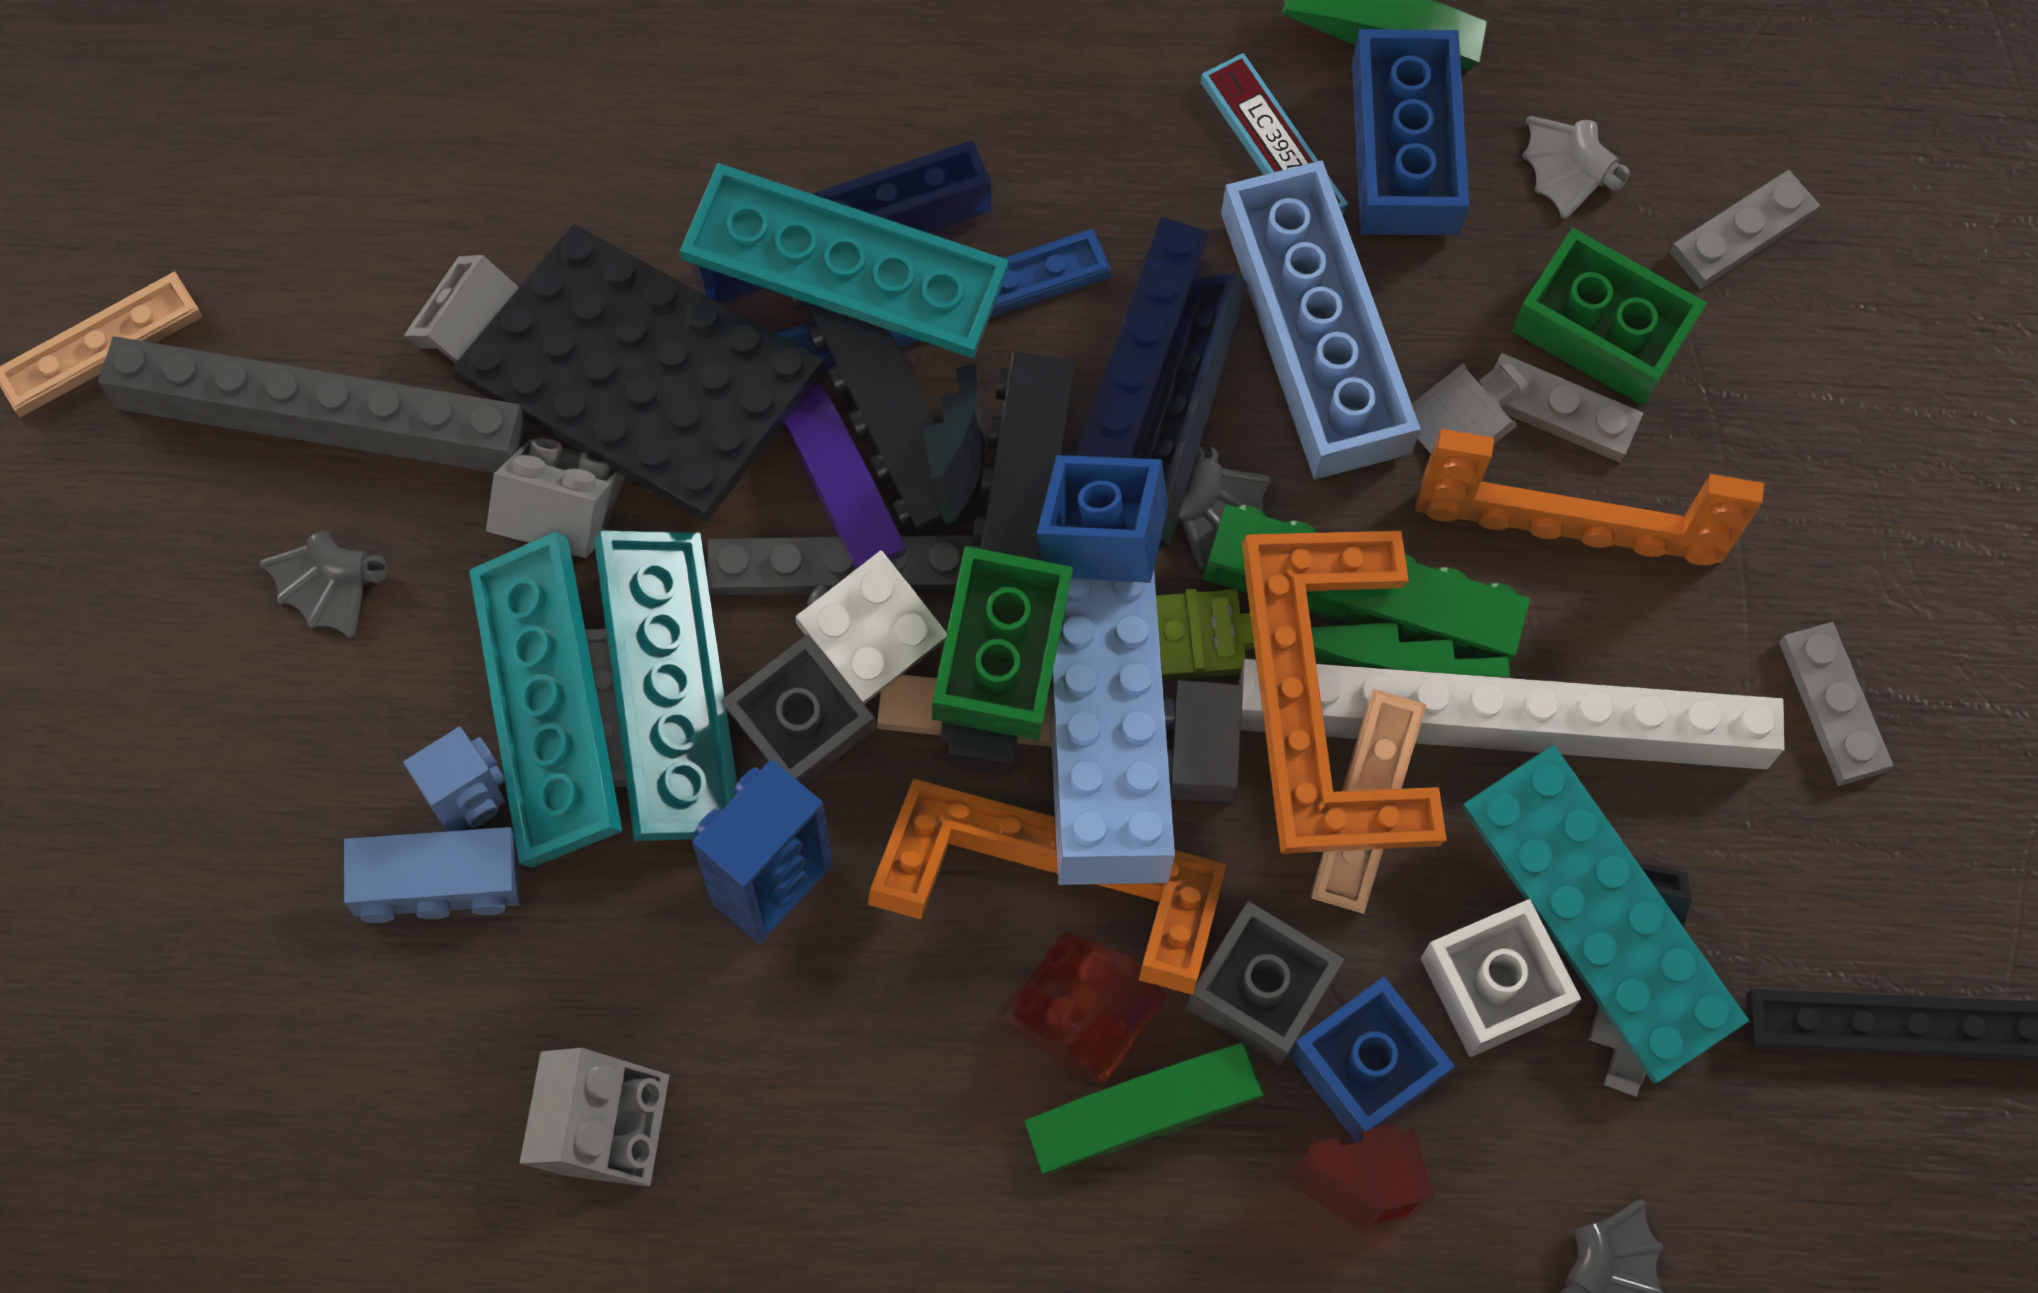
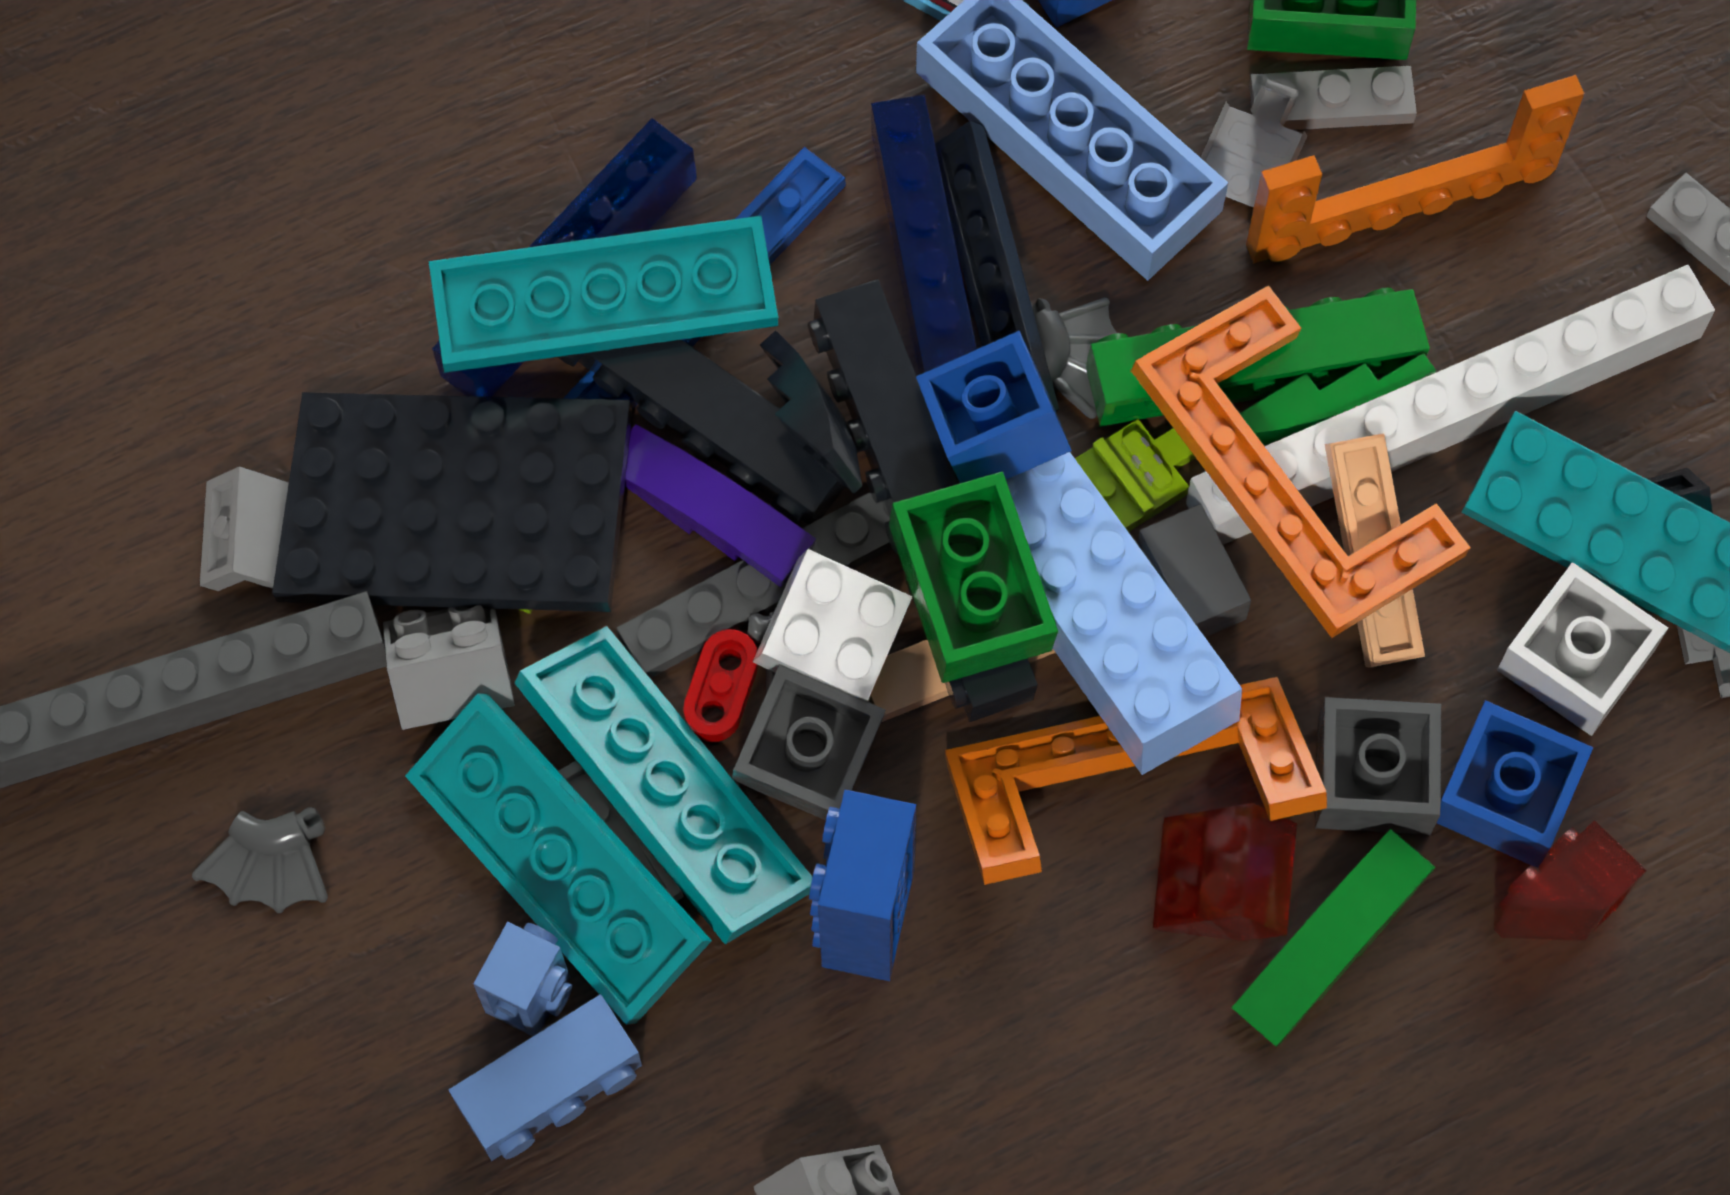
camera: 25 degrees left, 0 degrees up
(759, 629) = (719, 687): none -> red plate

